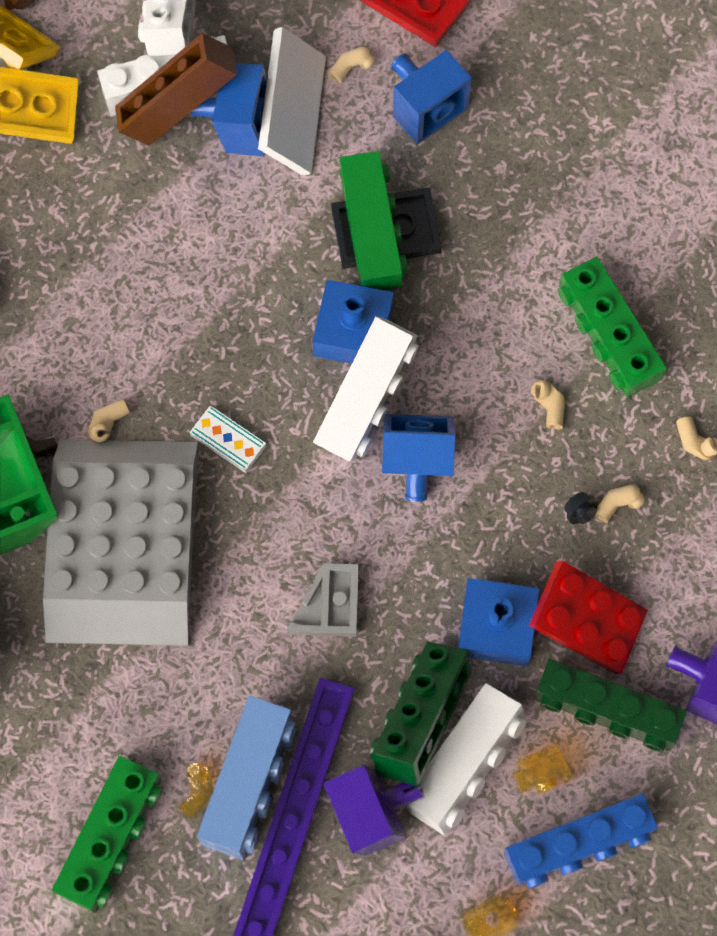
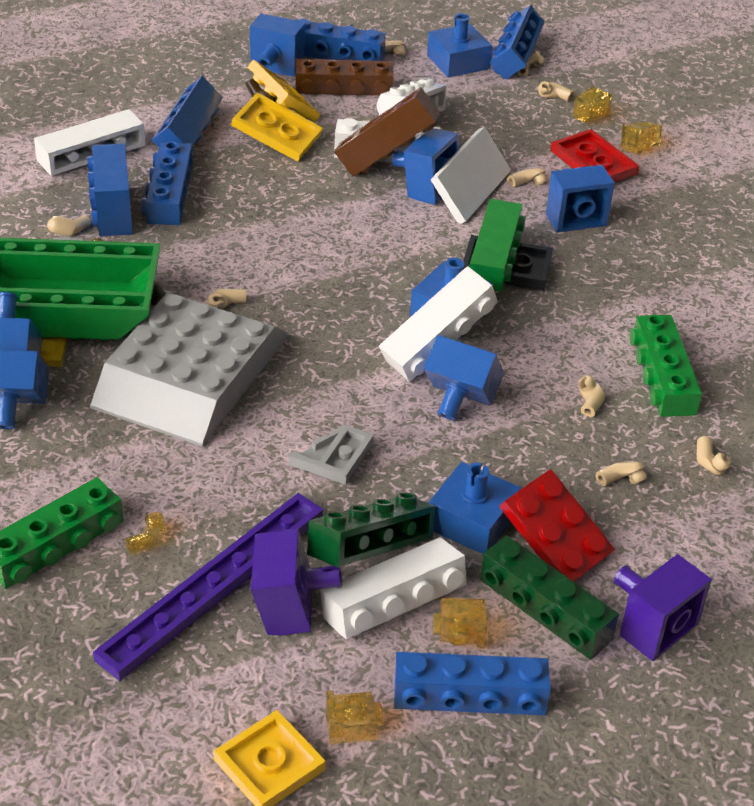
camera: 20 degrees right, 30 degrees down
(228, 439) = (313, 337): white tile -> none
(246, 777) = (191, 527): medium blue brick -> none
(581, 508) = (585, 463): black plate -> none

